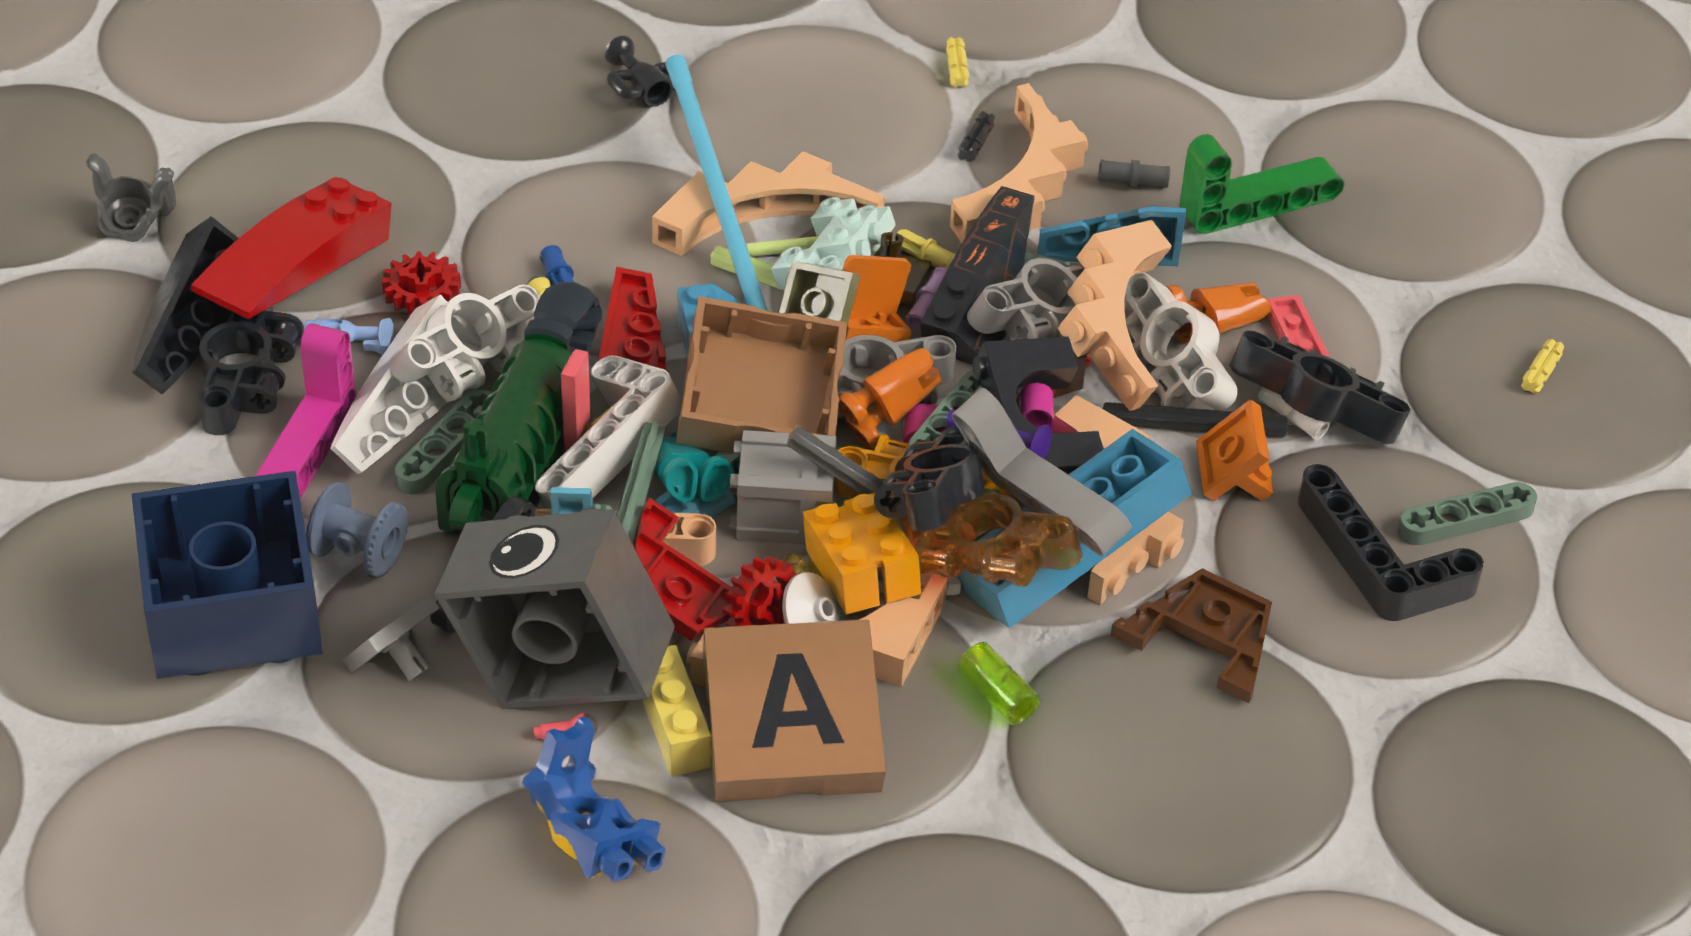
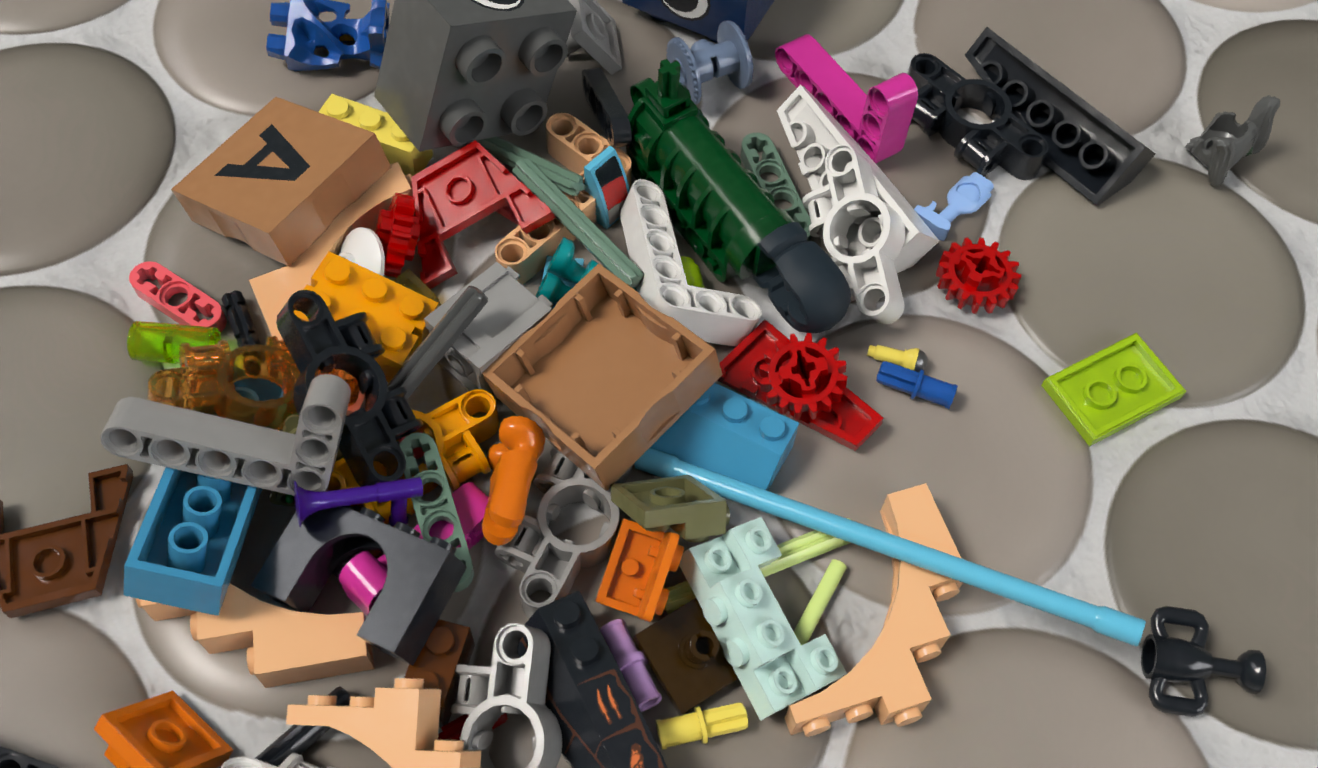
camera: 130 degrees right, 15 degrees up
(296, 247) = (1077, 201): red slope -> none
(450, 187) = (1113, 389): none -> lime tile
(575, 397) = (706, 236): coral tile -> none
(635, 308) = (818, 367): none -> red gear
(934, 667) = (240, 319): none -> black axle
(954, 739) = (171, 285): none -> coral beam

